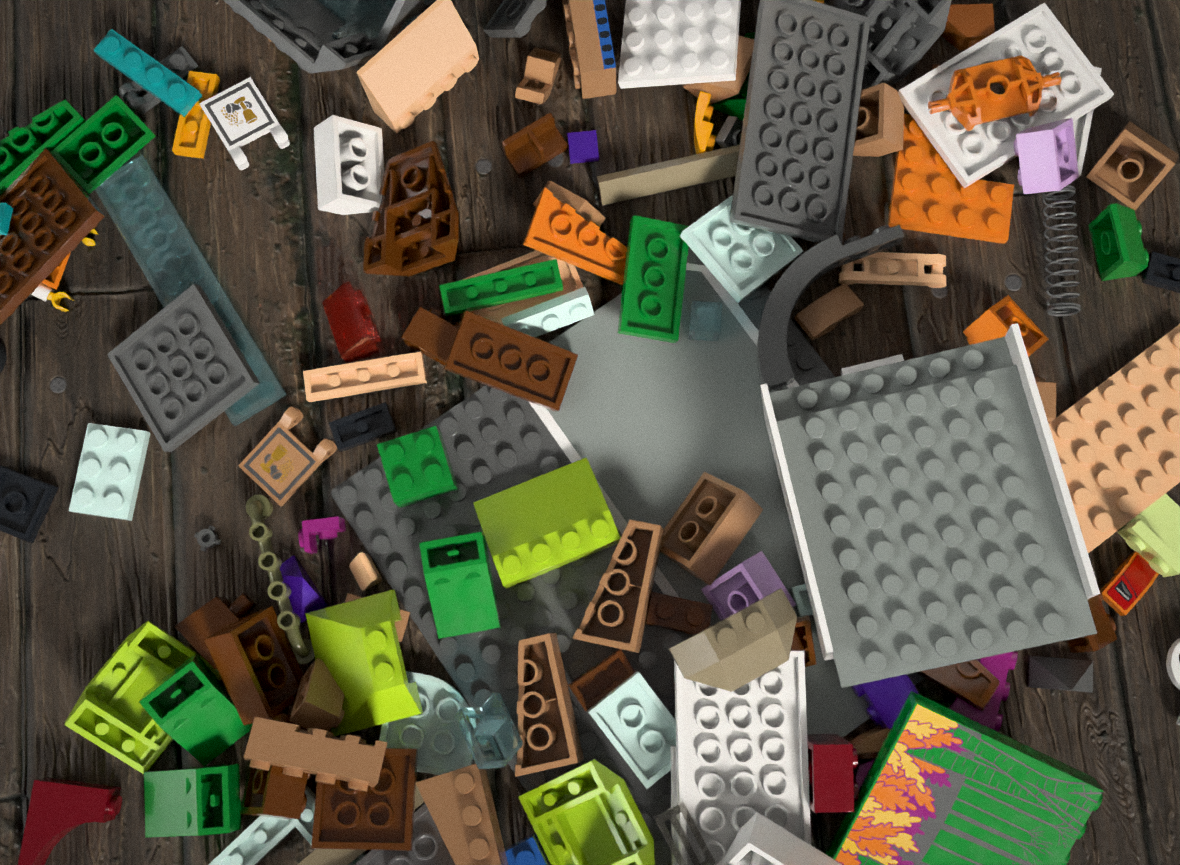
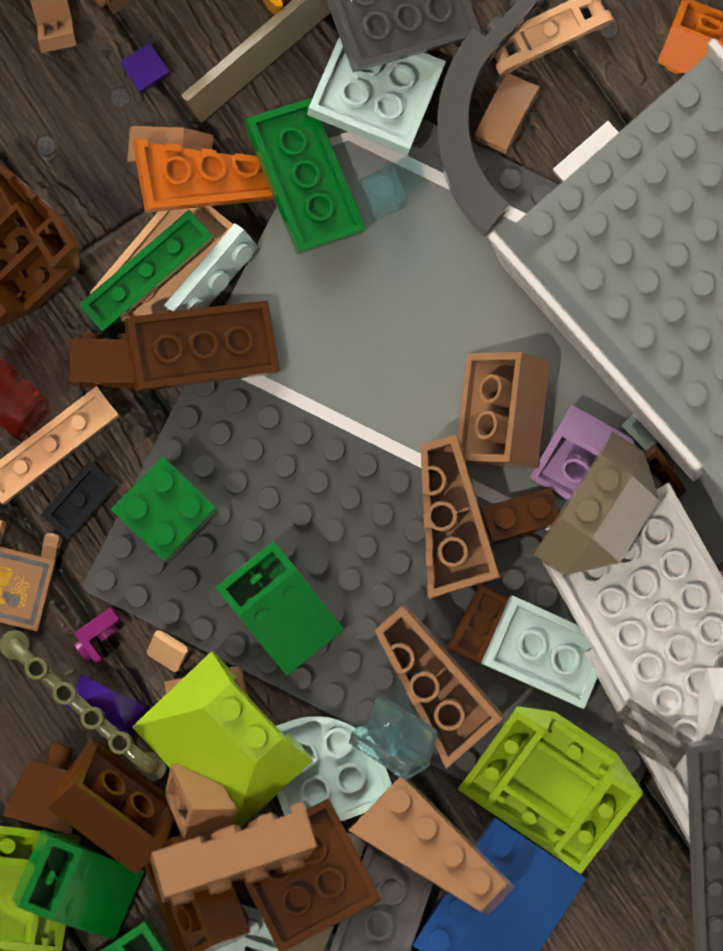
camera: 35 degrees left, 5 degrees up
(534, 145) = (92, 96): reddish brown panel -> none
(546, 523) = (332, 494): lime slope -> none

